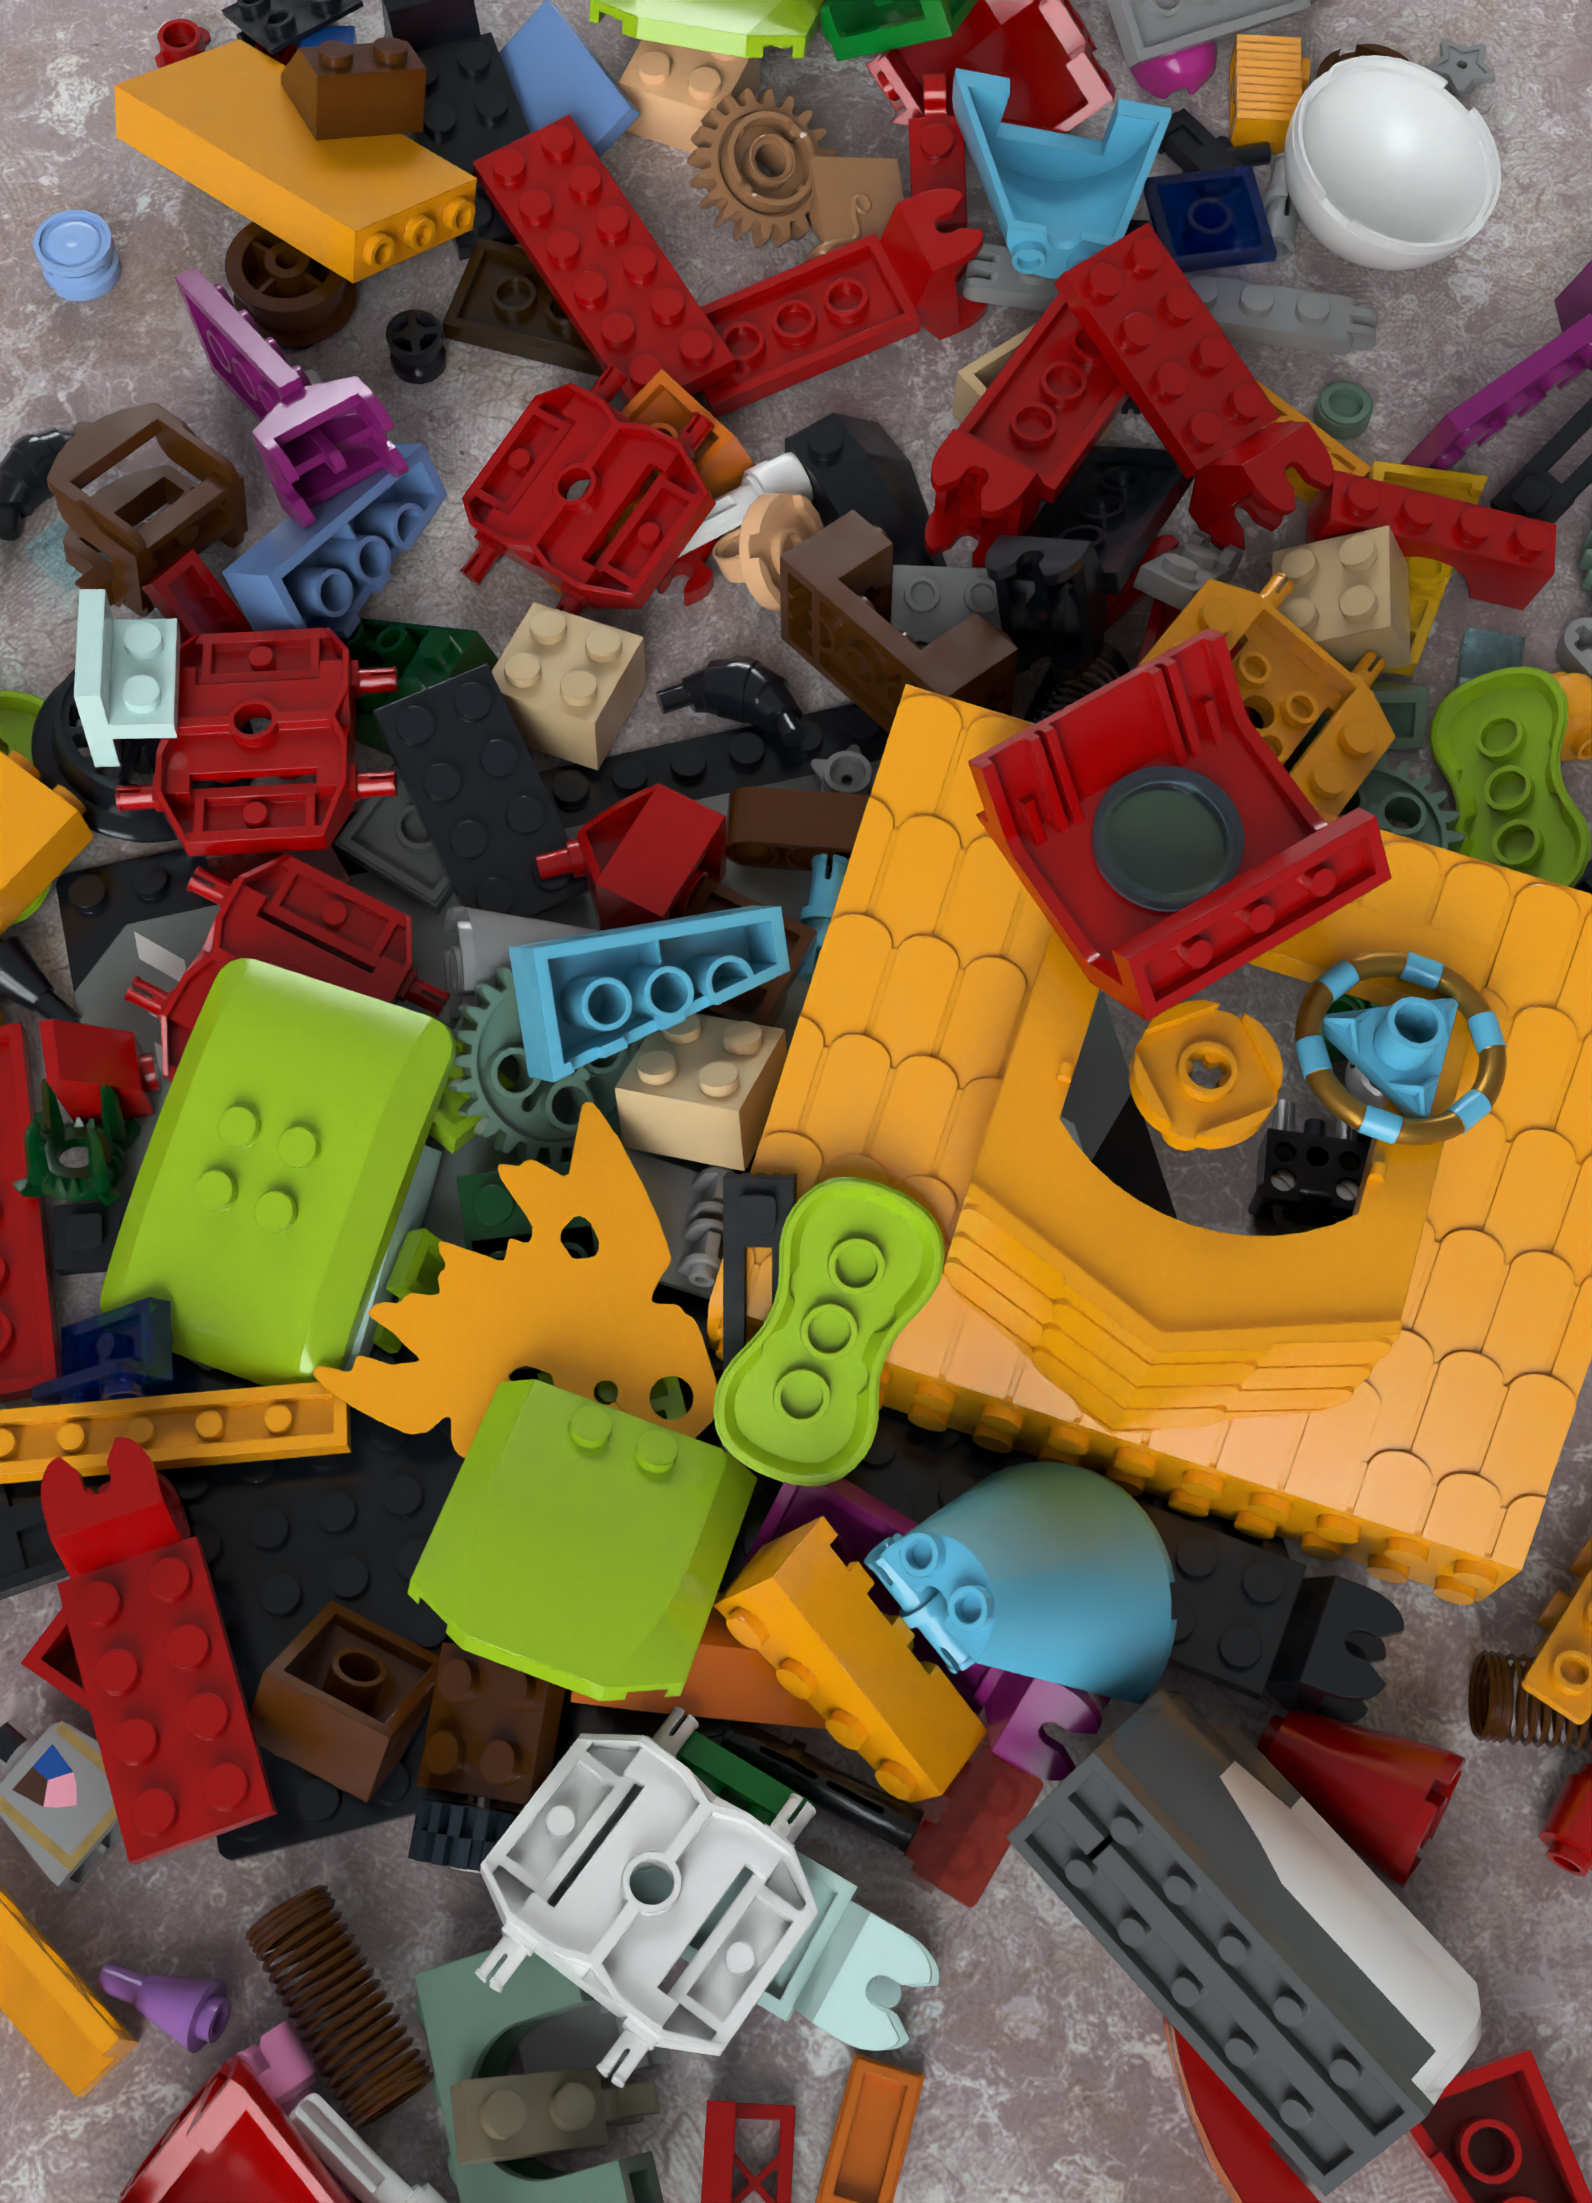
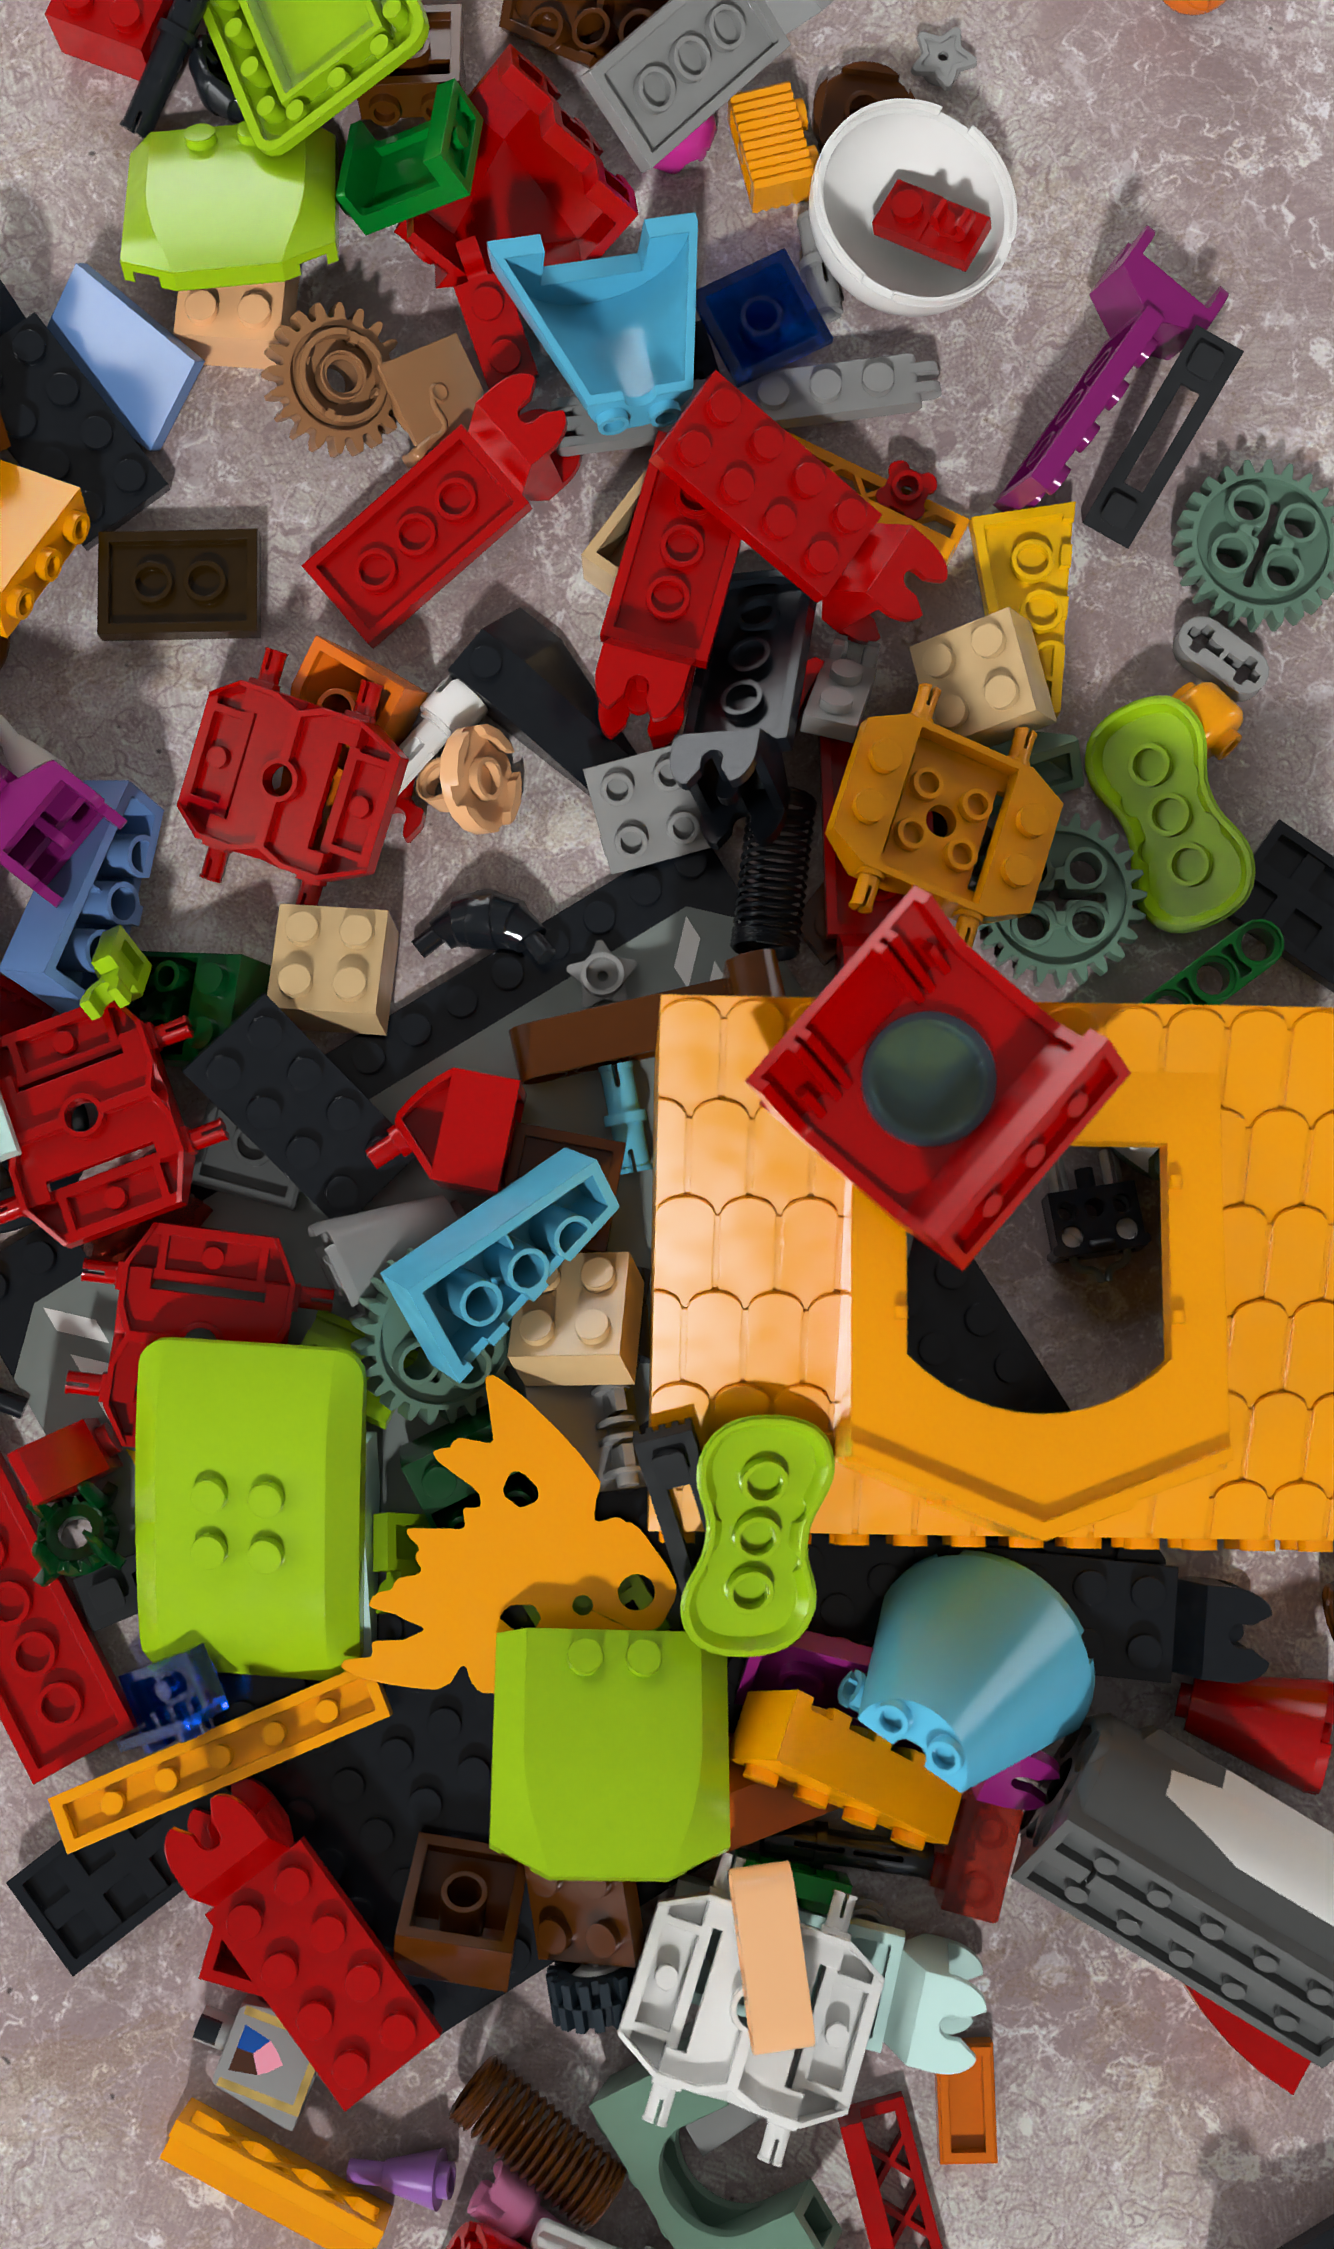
camera: 15 degrees left, 15 degrees up
(342, 607) = (120, 972): none -> lime plate
(405, 338) = (71, 652): black wheel -> none
(542, 2114) = (713, 2182): dark tan plate -> none
(601, 261) = (221, 529): red plate -> none
(692, 1818) = (771, 1958): none -> light nougat beam
(839, 622) = (539, 824): reddish brown plate -> none
(1187, 1111) = (1056, 1290): light orange plate -> none
(1198, 150) = (736, 234): black piece -> none
(1312, 404) = (902, 476): none -> red plate
(1343, 410) = (932, 456): sand green tile -> none
(1399, 1048) = (1169, 1201): medium azure piece -> none
(1408, 189) = (931, 225): none -> red plate
(1487, 652) = (1118, 681): clear light blue tile -> none
(1496, 551) = (1090, 582): red arch -> none

